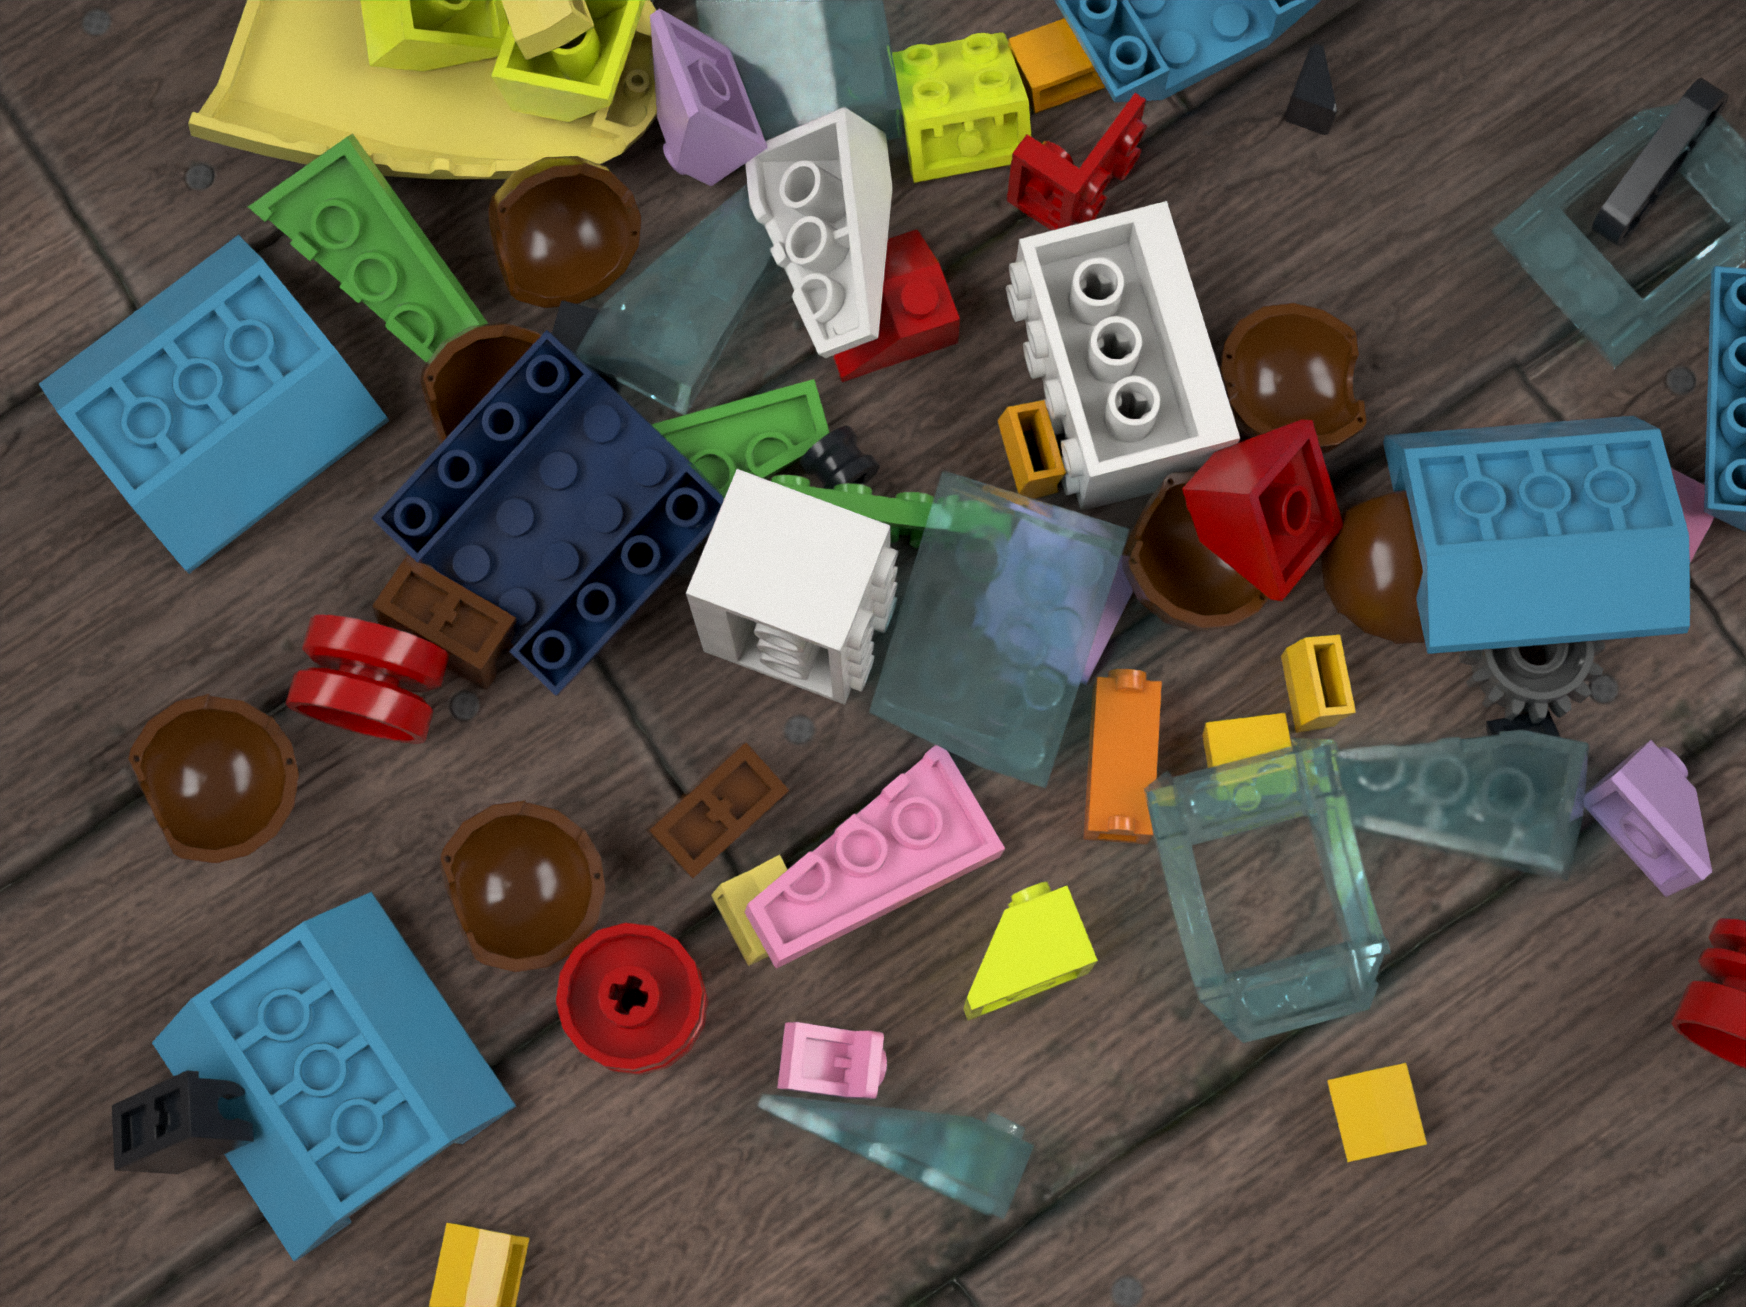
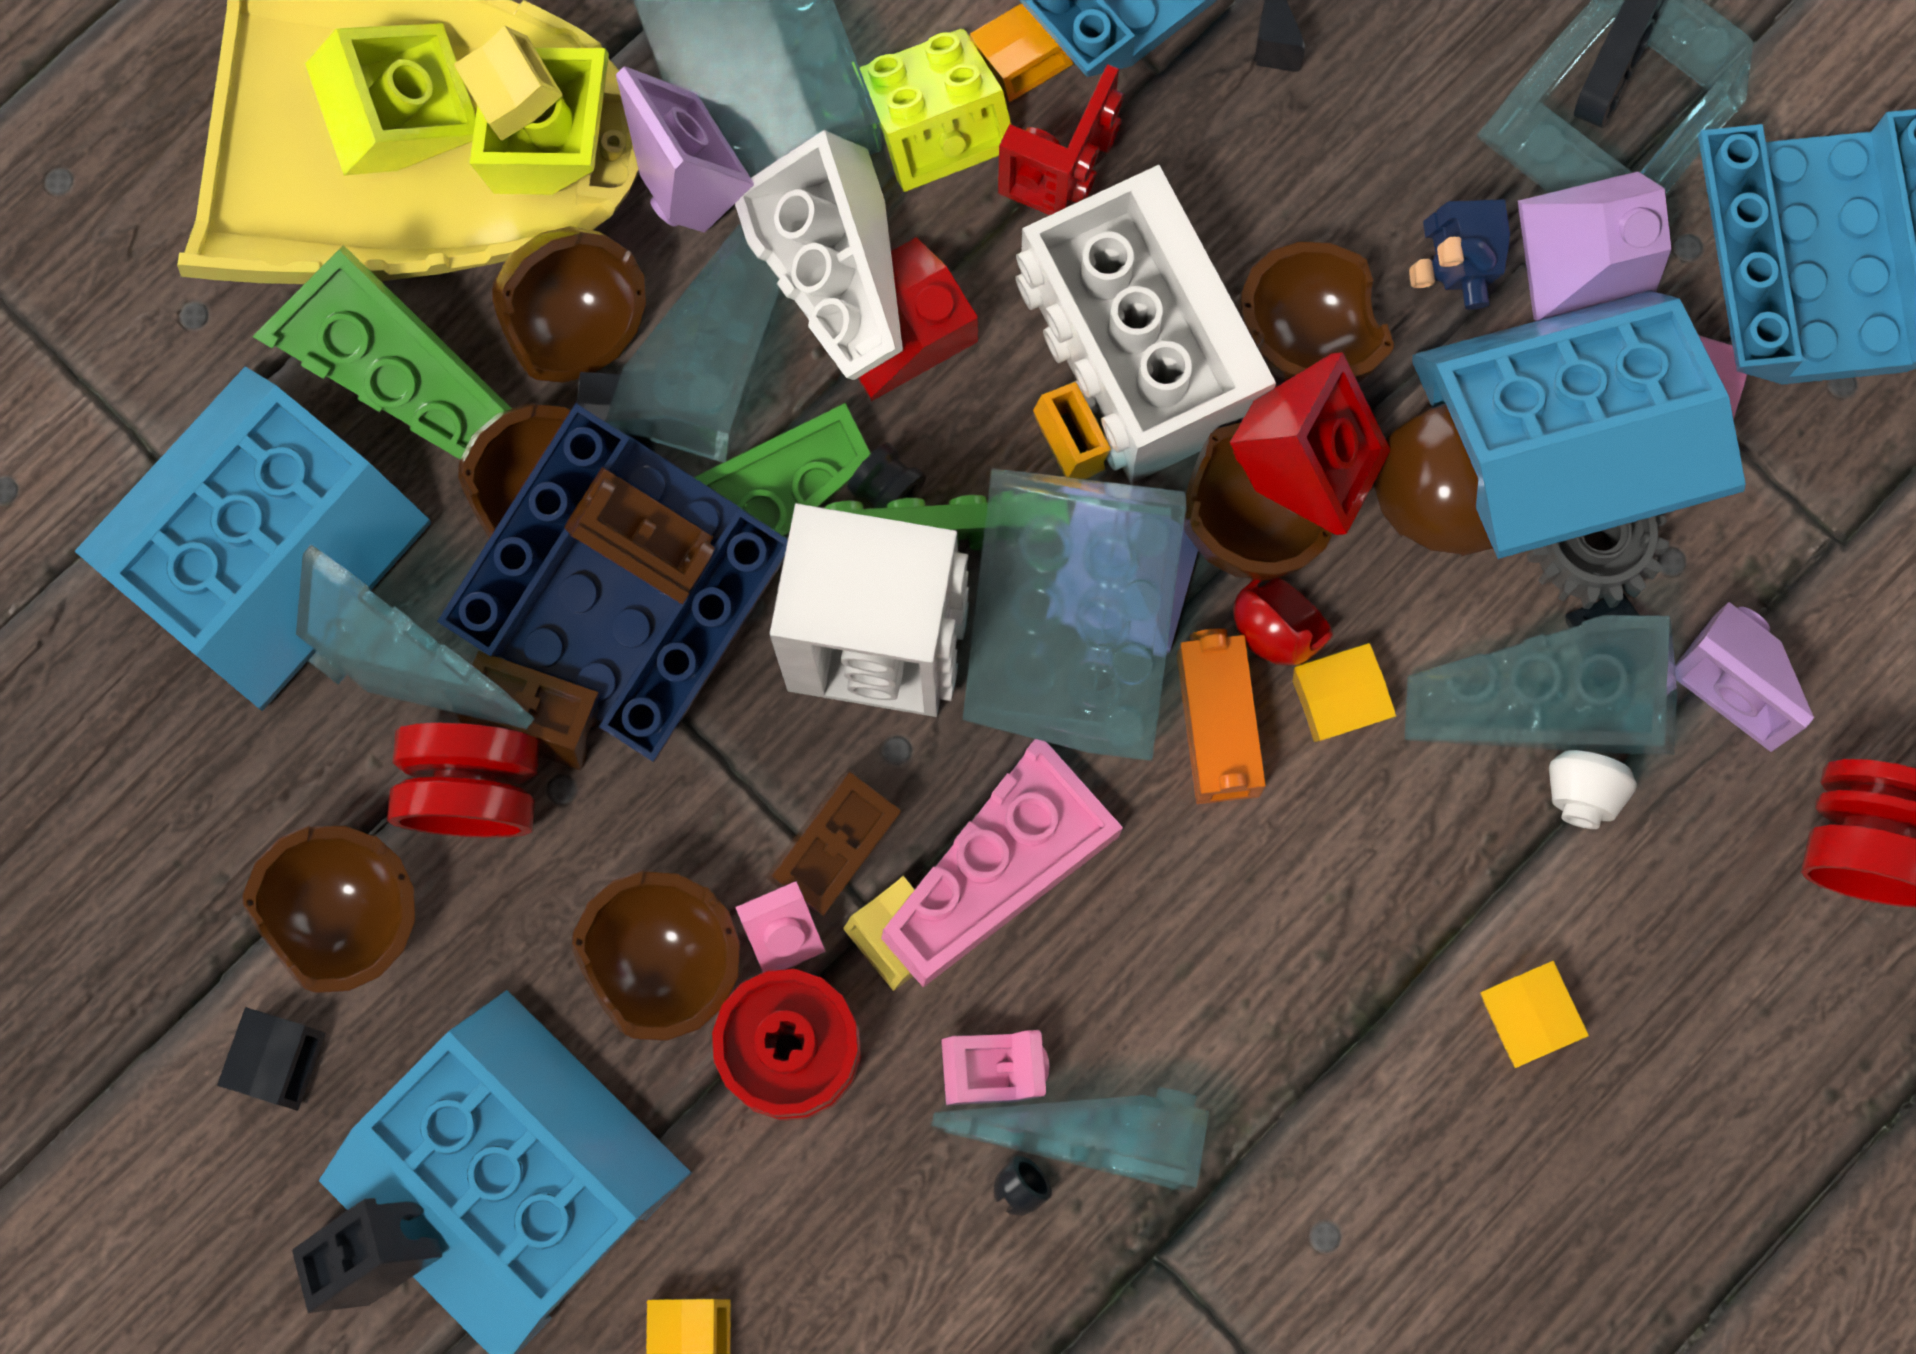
camera: 10 degrees left, 0 degrees up
(129, 915) = (271, 1059): none -> black piece
(316, 537) = (386, 650): none -> clear light blue wedge
(585, 471) = (641, 535): none -> reddish brown hinge
(648, 883) = (780, 928): none -> bright pink bracket
(836, 1183) = (1022, 1186): none -> black hinge
(1031, 951) = (1169, 921): neon yellow slope -> none
(1200, 676) = (1280, 623): none -> red hair
(1244, 798) = (1350, 731): clear light blue wedge -> none
(1317, 682) = (1395, 607): yellow piece -> none
(1461, 340) = (1469, 249): none -> dark blue piece
(1476, 898) = (1589, 787): none -> white cone
(1586, 358) = (1594, 243): none -> lavender slope

